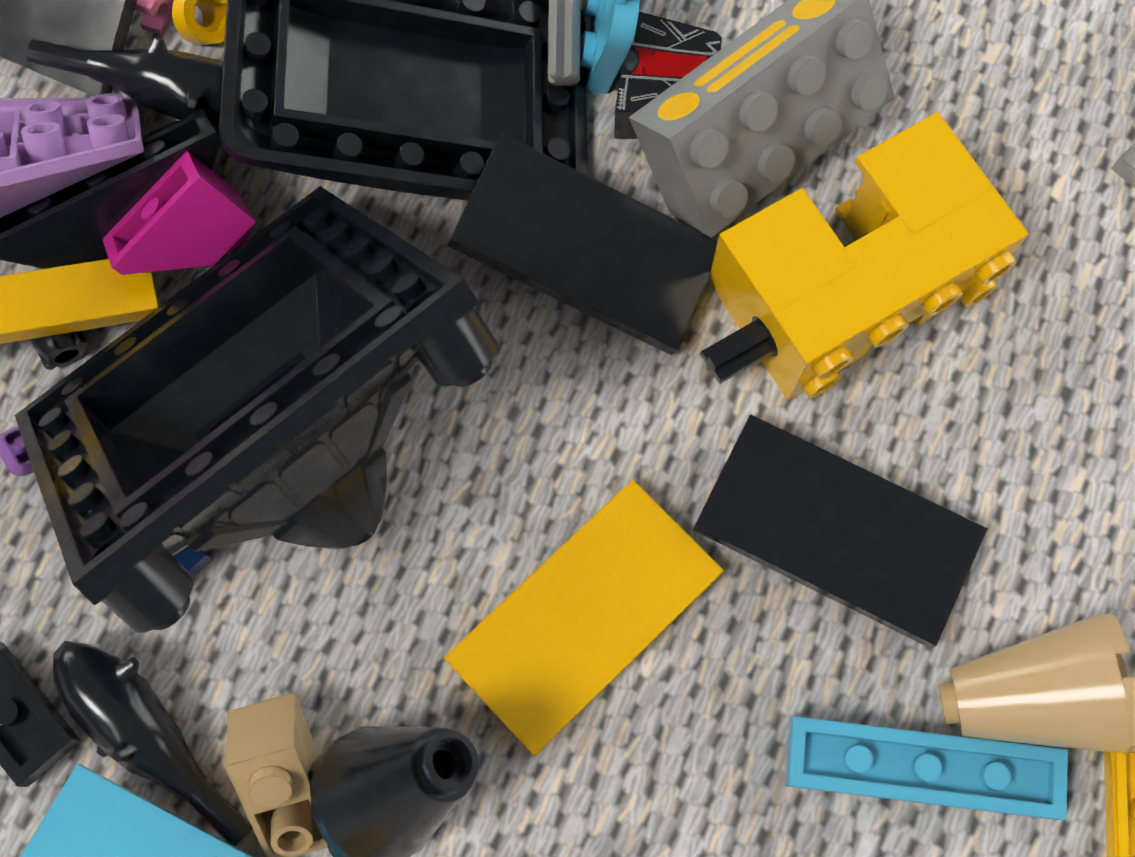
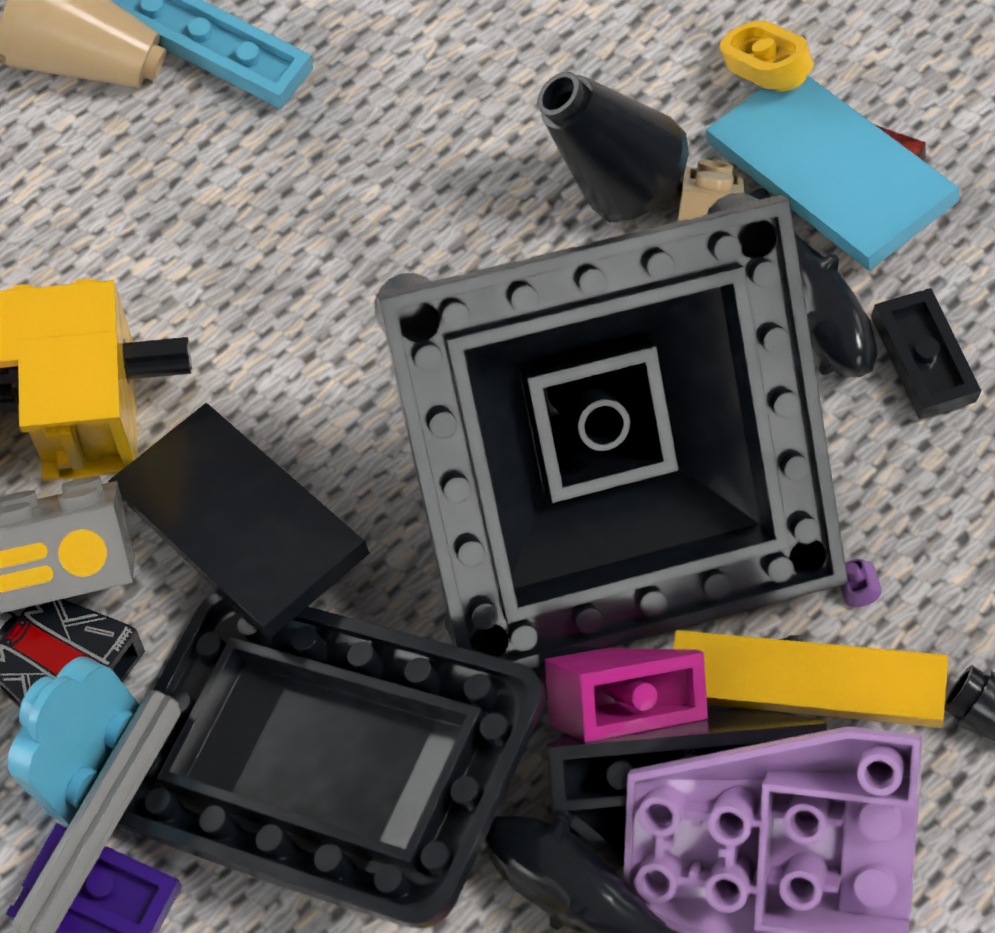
camera: 160 degrees left, 10 degrees down
(583, 617) = (422, 226): yellow tile -> none
(841, 531) = (159, 214): black tile -> none

